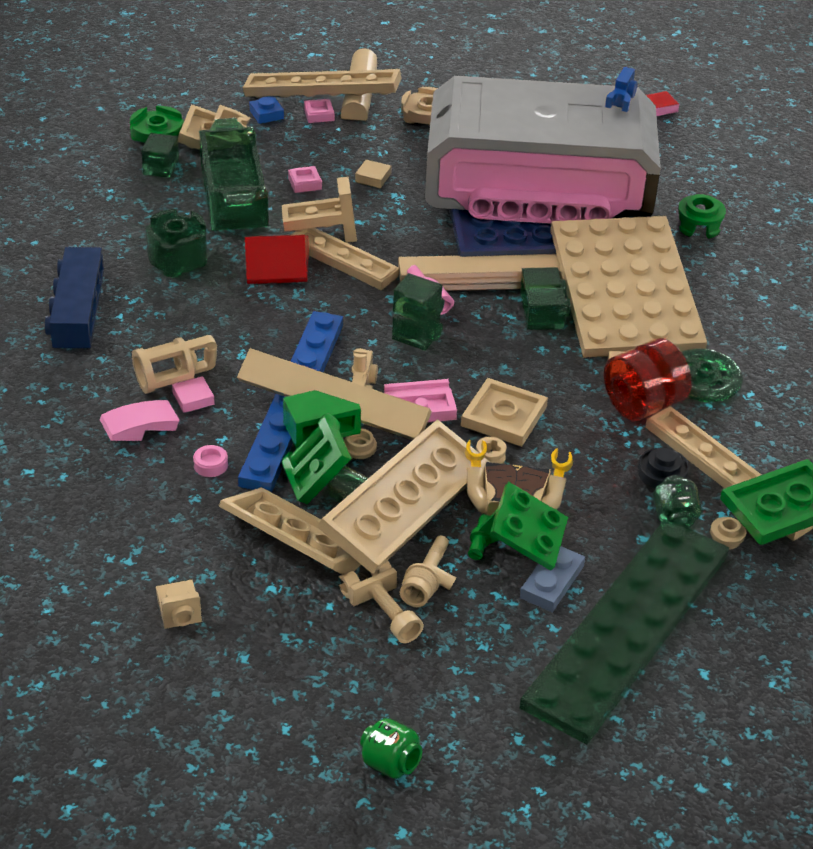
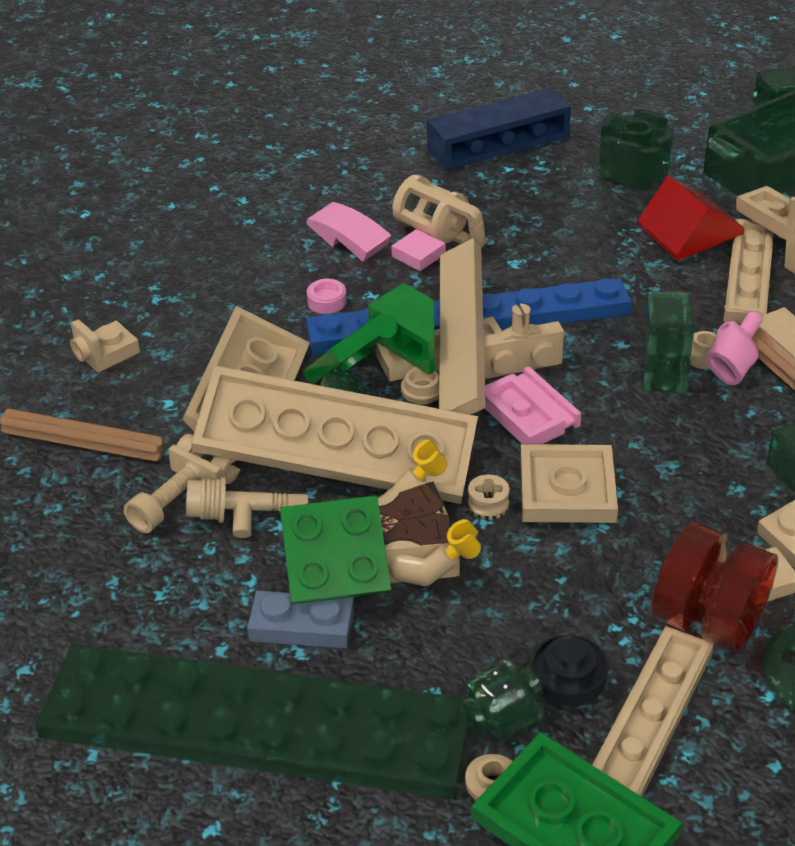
camera: 70 degrees right, 0 degrees up
(284, 645) = (83, 435): none -> medium nougat axle

